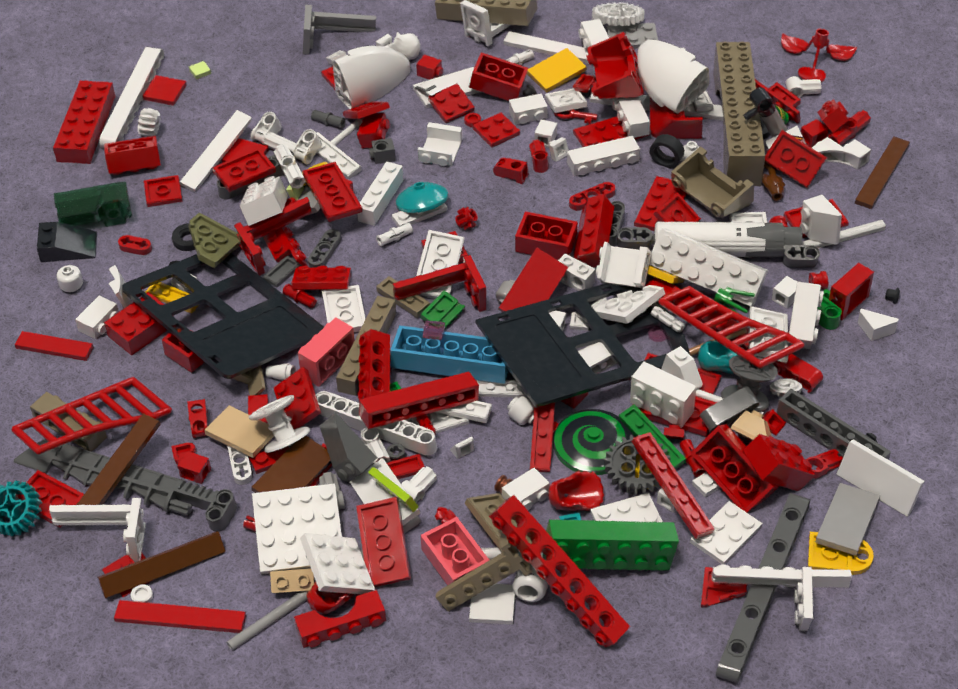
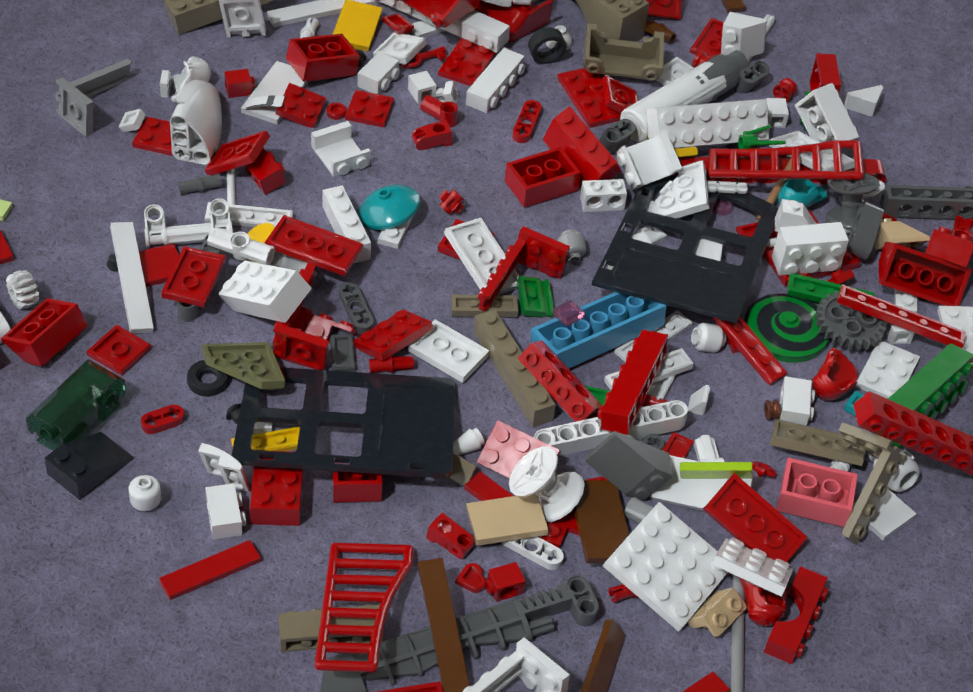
camera: 50 degrees left, 0 degrees up
(326, 350) = (493, 392): coral brick -> none
(382, 151) = (295, 184): dark grey brick -> none
(394, 234) = (403, 255): white pin -> none
(535, 281) = (592, 222): red tile -> none
(687, 447) = (879, 291): red pin -> none
(892, 295) = (846, 70): black piece -> none

